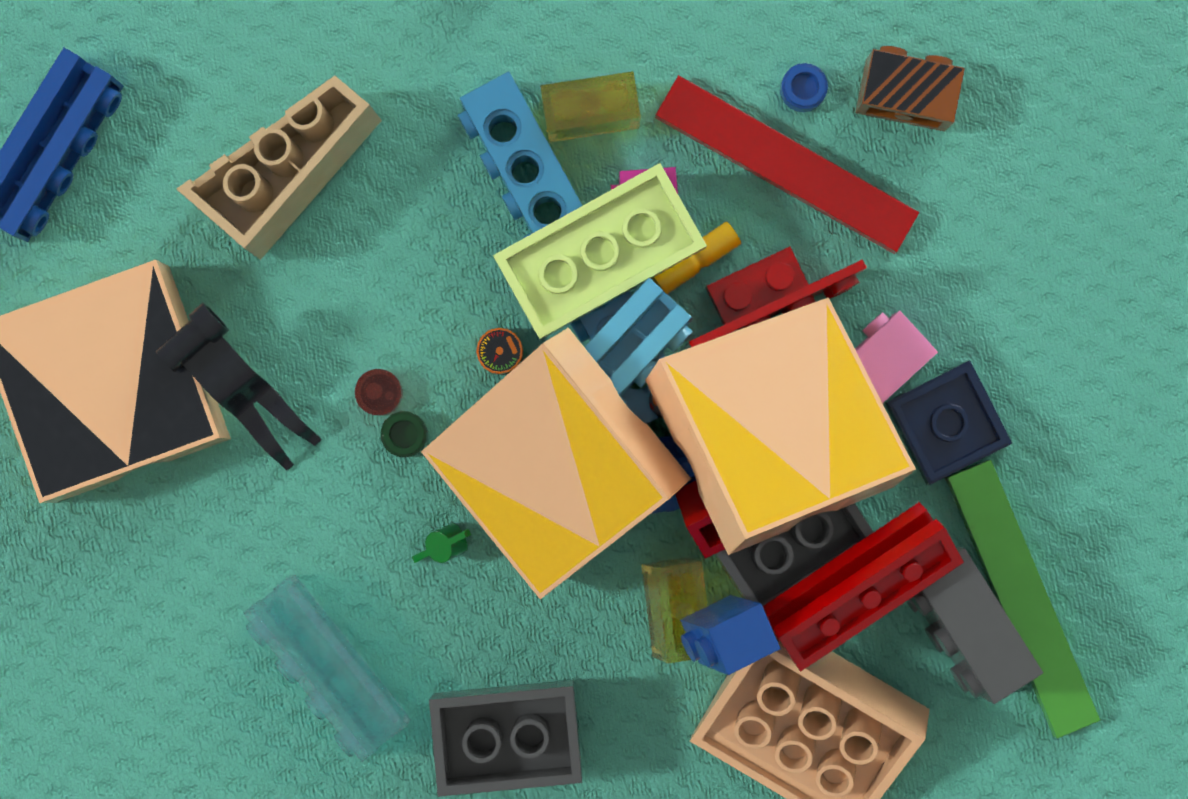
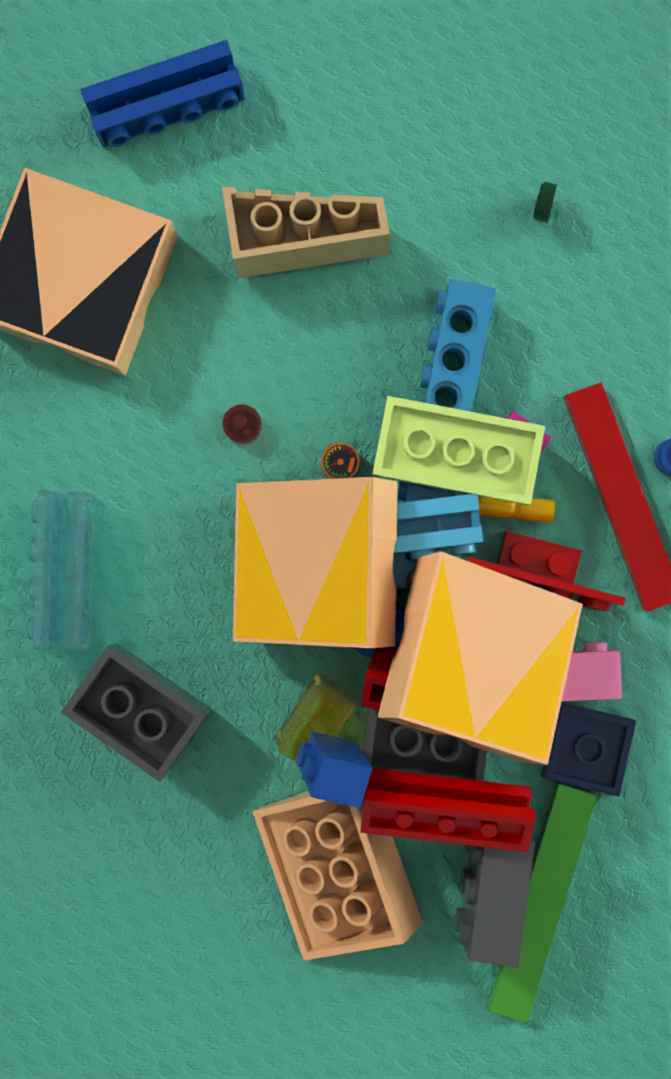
camera: 40 degrees right, 0 degrees up
(231, 380) = (153, 336): black flag -> none
(404, 434) = (235, 464): dark green tile -> none
(444, 544) = (202, 555): green piece -> none
(590, 106) = (529, 355): clear yellow brick -> none

